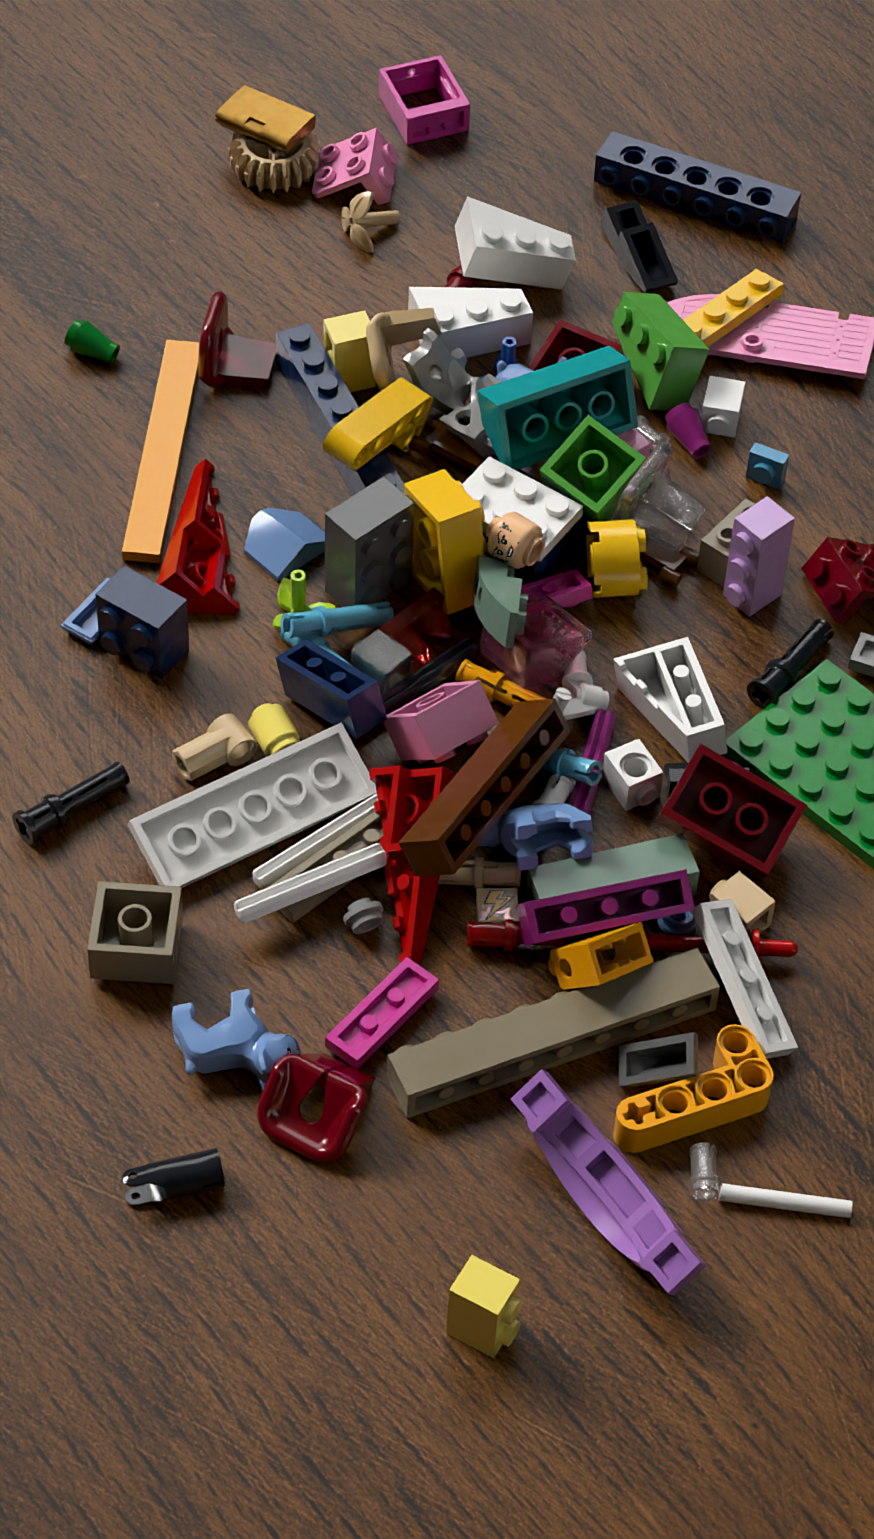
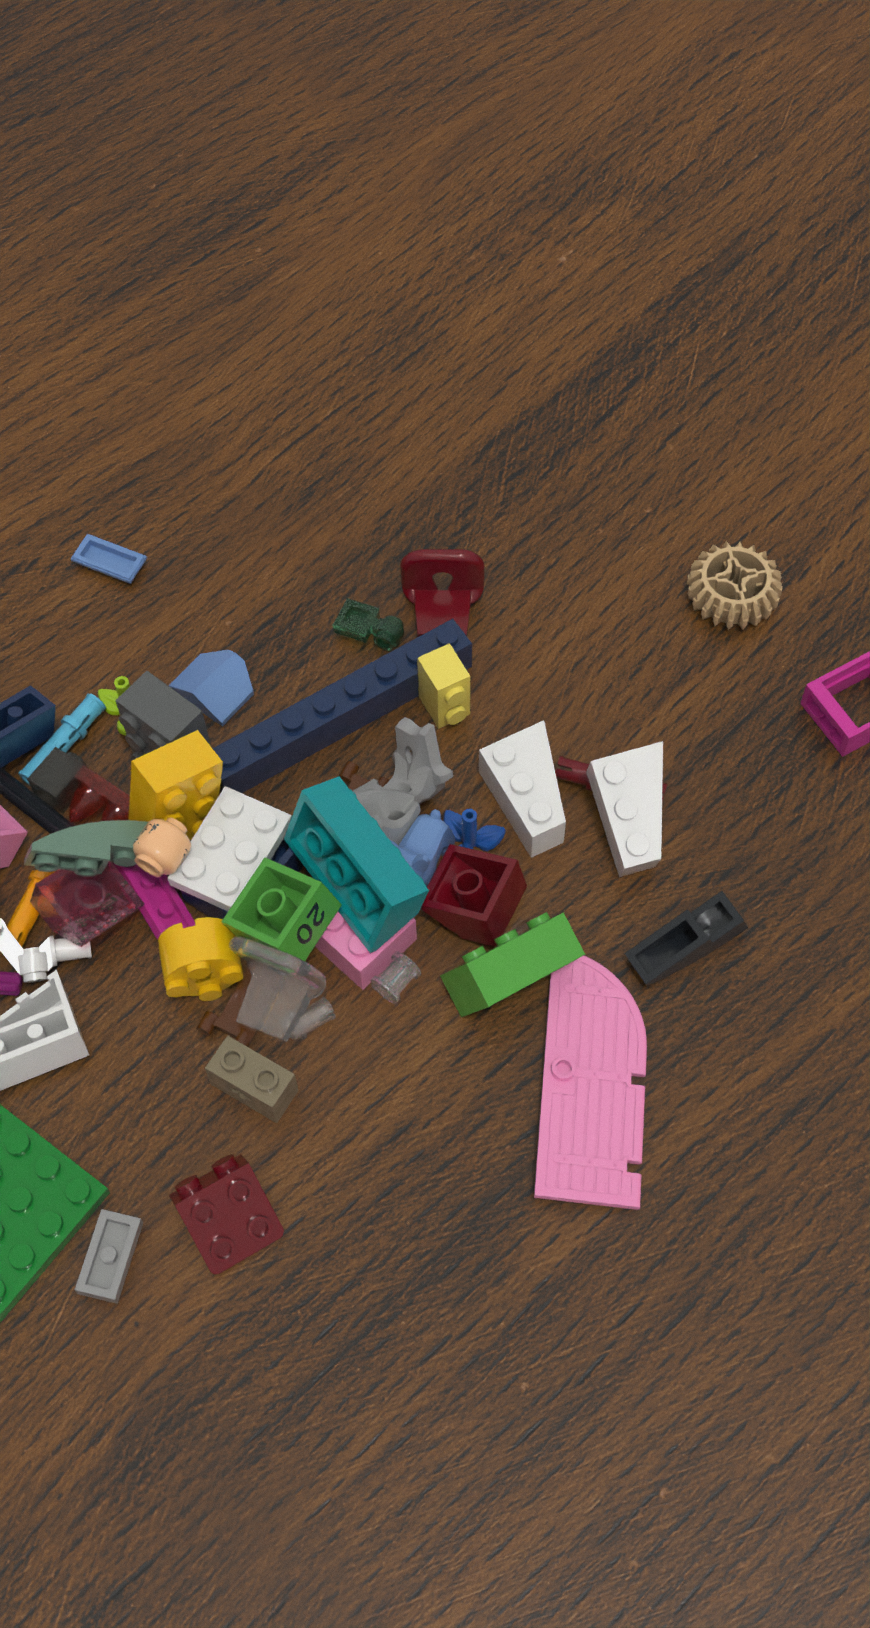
camera: 85 degrees right, 10 degrees up
(89, 341) = (435, 487): green cone -> none
(142, 622) = (72, 582): dark blue brick -> none
(162, 453) = (295, 571): light orange tile -> none
(199, 550) = (172, 620): red wedge -> none
(246, 416) = (360, 620): none -> clear green plate
(265, 119) = (755, 558): piece -> none
(324, 621) = (93, 720): medium azure pin -> none
(358, 218) = (653, 671): tan plant -> none
(359, 159) = (736, 661): bright pink bracket -> none
(383, 420) = (322, 715): yellow beam -> none
(394, 329) = (460, 716): tan piece -> none
(688, 429) = (417, 1018): magenta cone -> none
(697, 186) = (792, 1081): dark blue brick -> none
(722, 406) = (454, 1047): white brick -> none
(734, 306) = (602, 1035): yellow plate -> none
(758, 556) = (196, 1088): lavender brick -> none
(767, 465) = (373, 1101): dark azure plate -> none
(782, 672) = (84, 1144): black pin -> none

